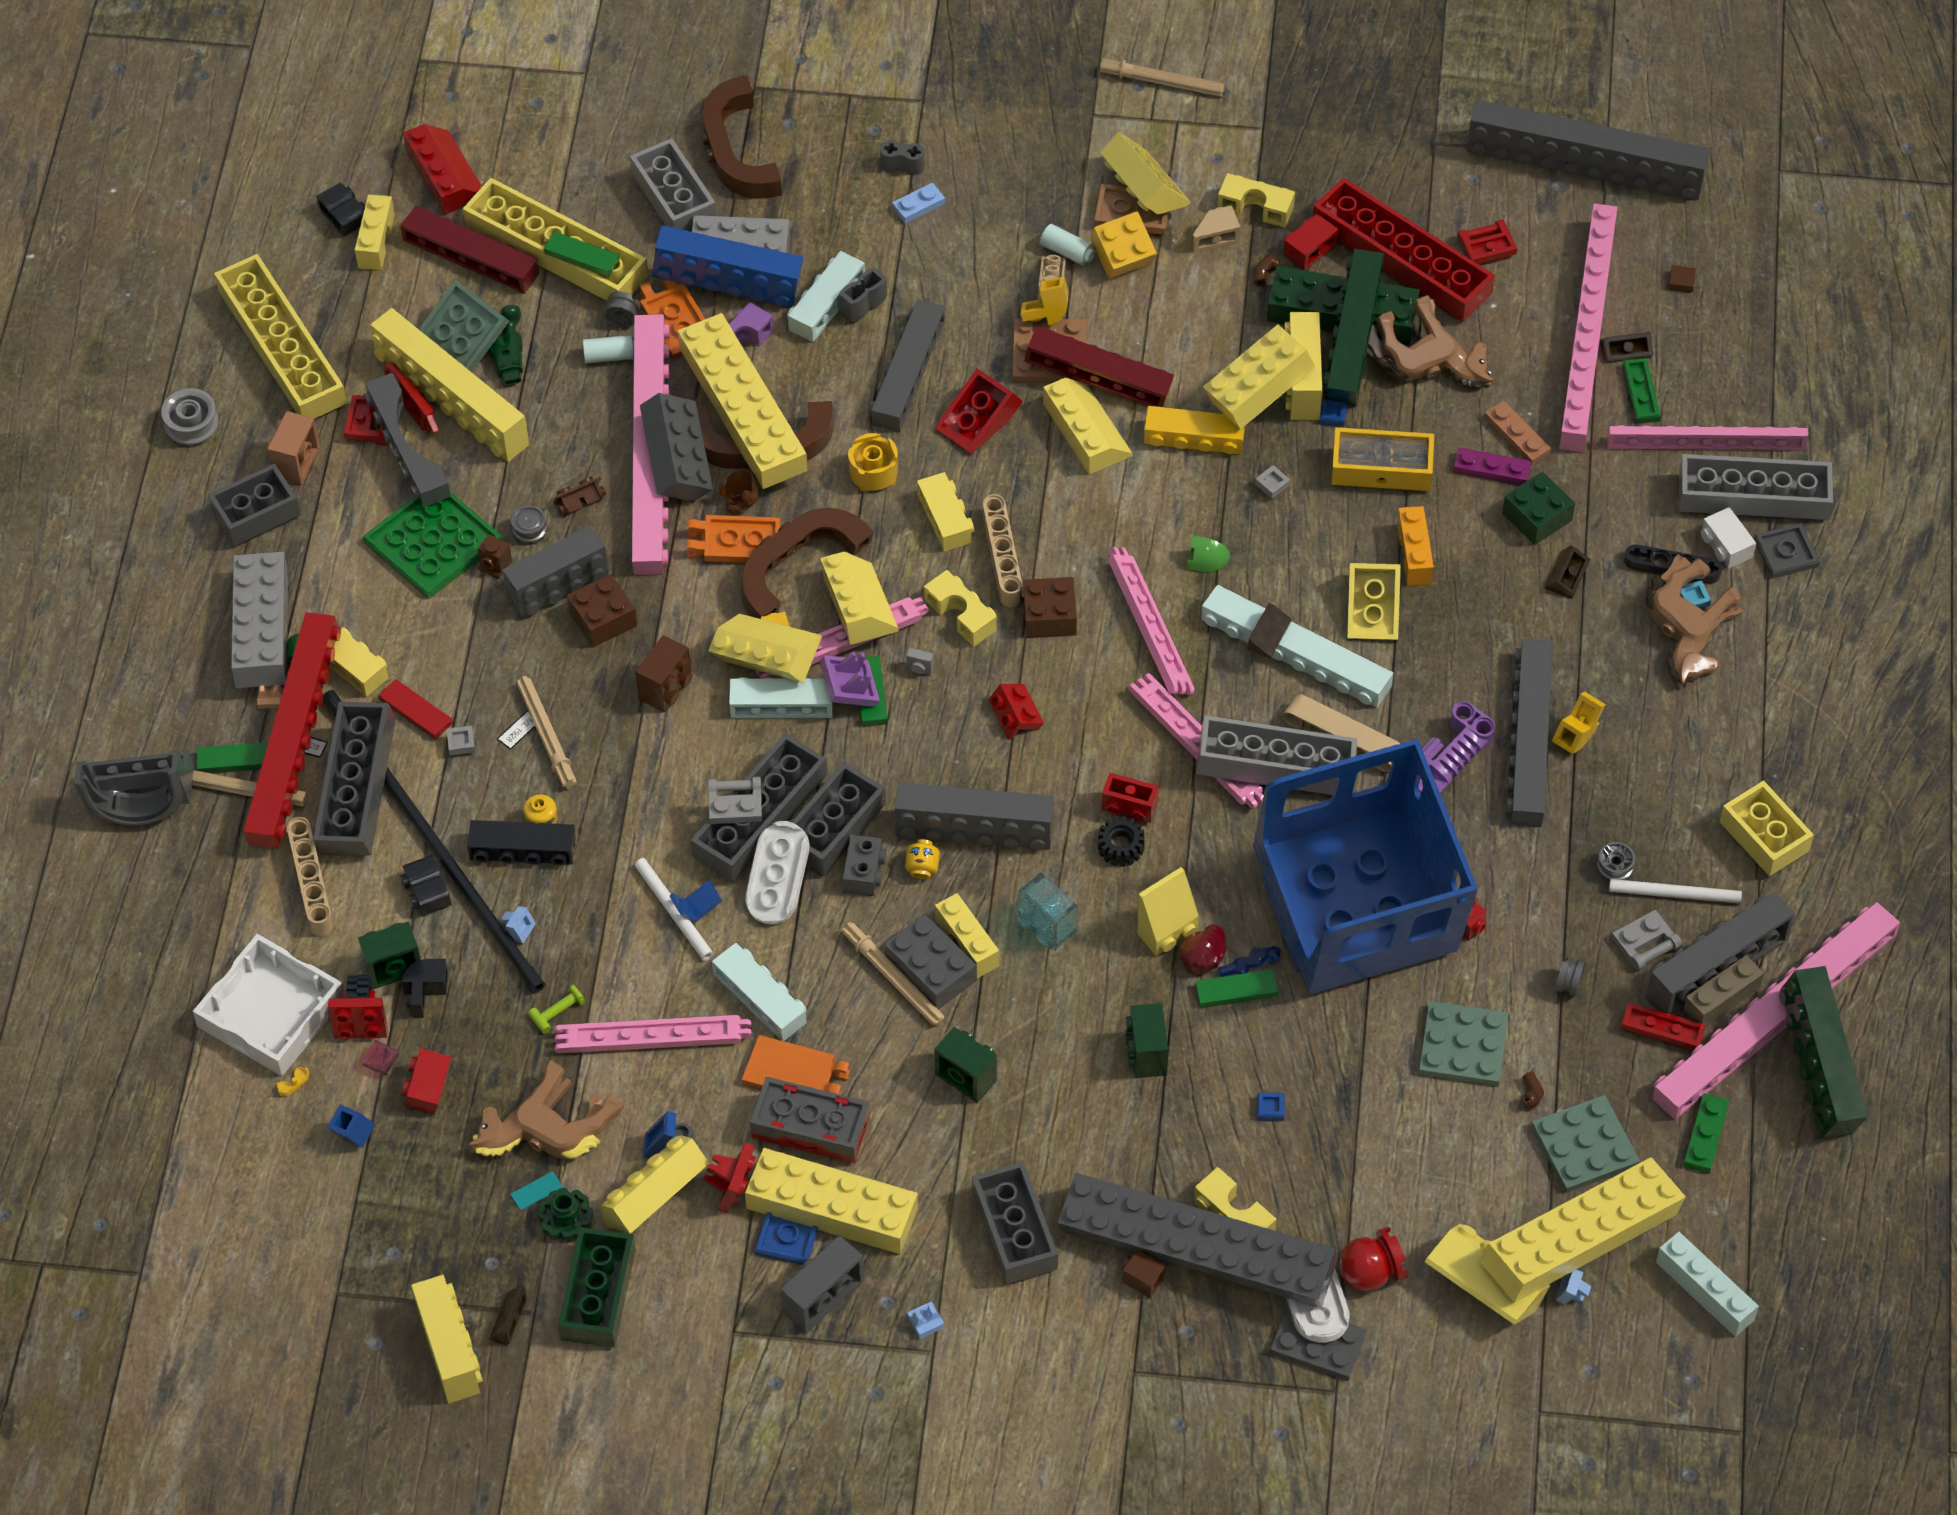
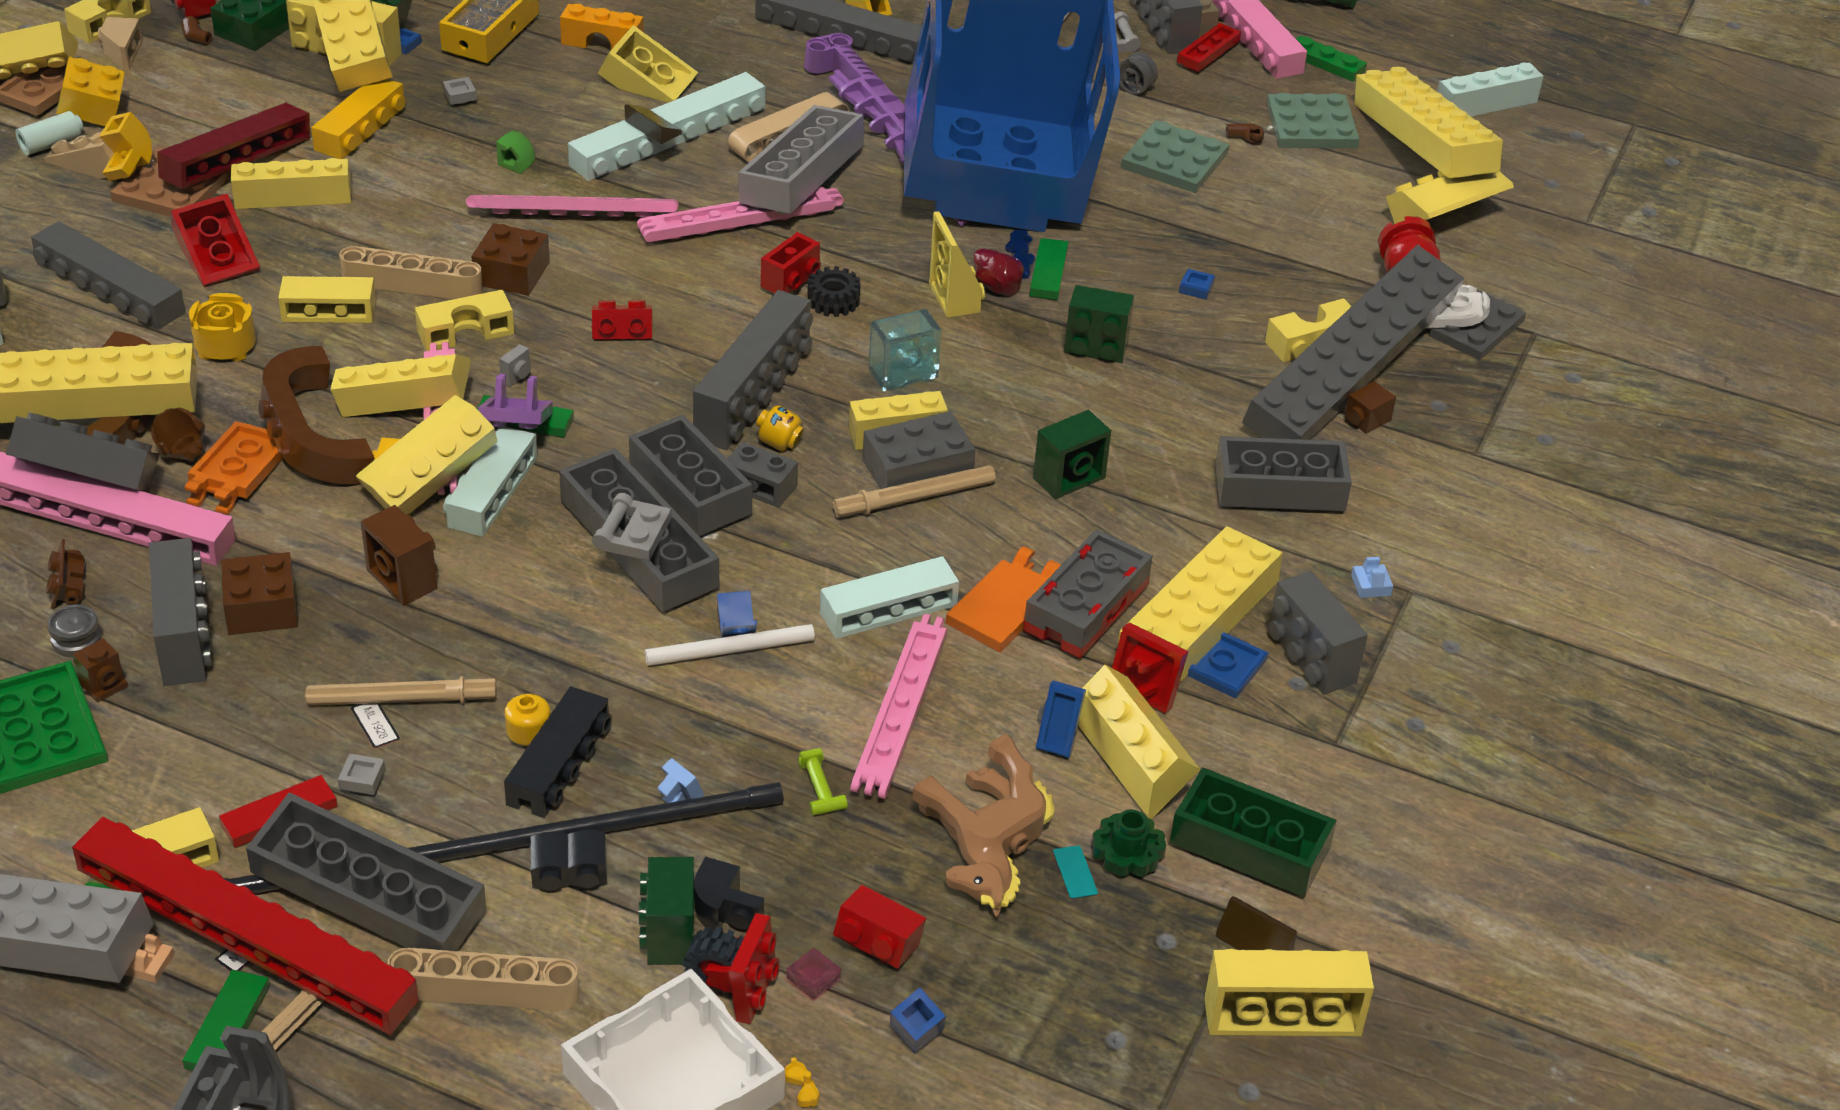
camera: 75 degrees left, 15 degrees down
(777, 872) = (741, 532): white tile -> none

